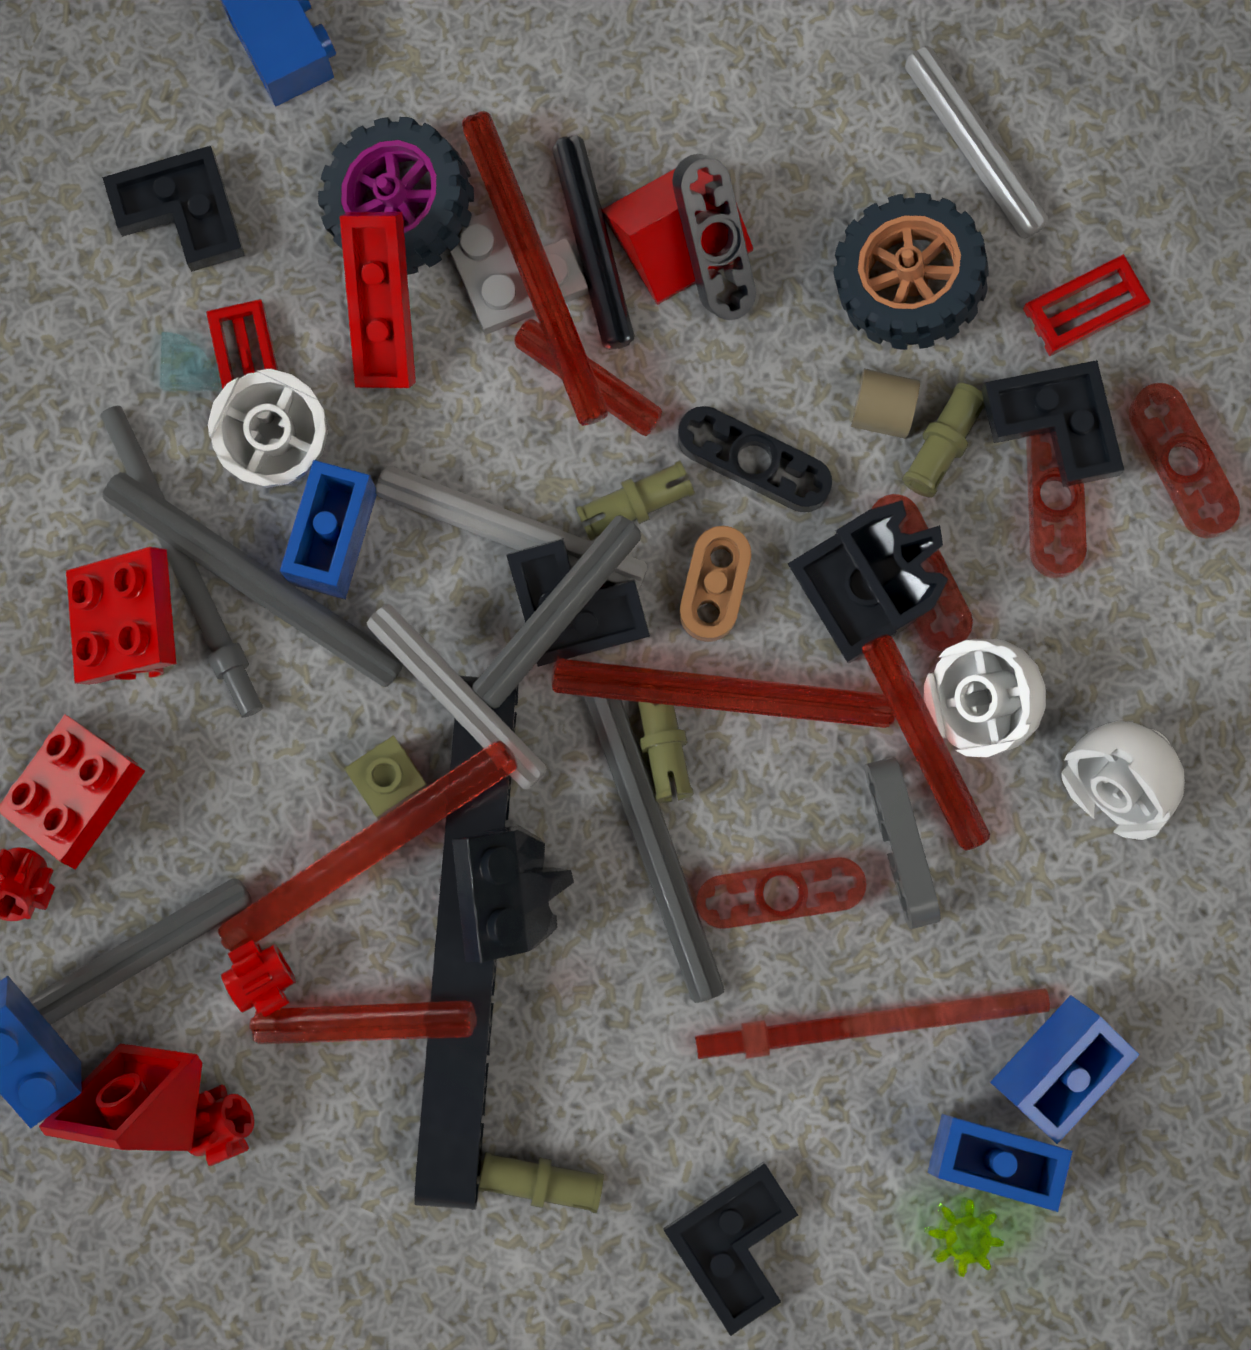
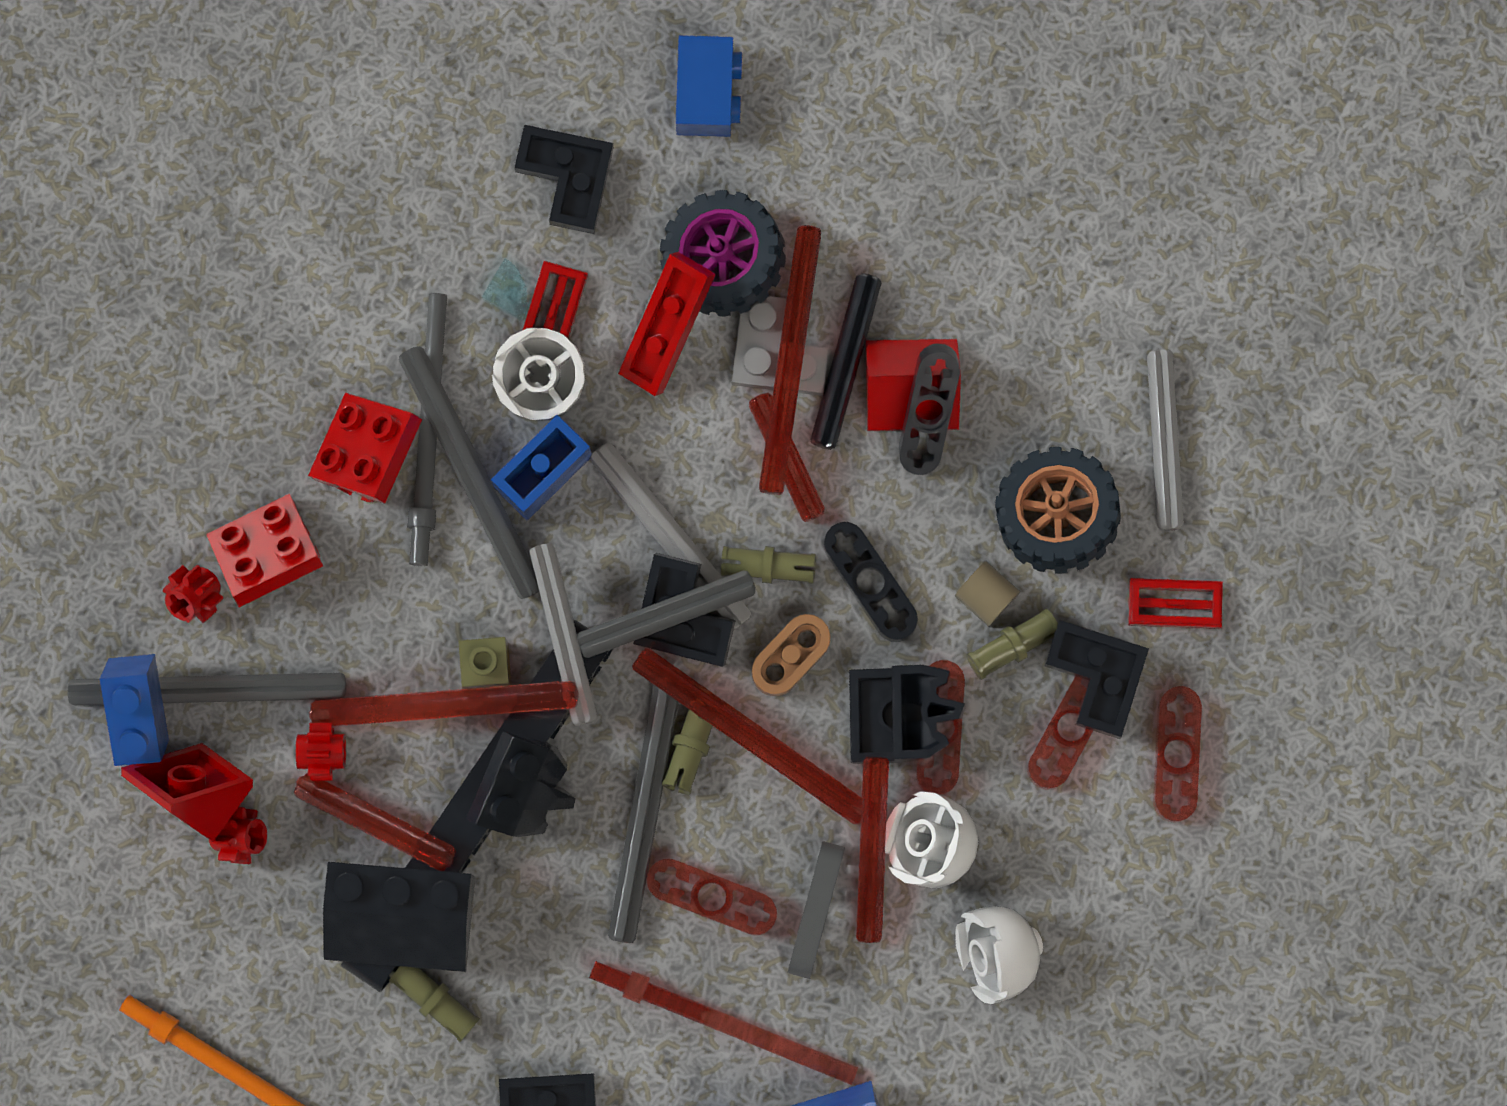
camera: 30 degrees right, 0 degrees up
(448, 1116) = (397, 916): none -> black slope

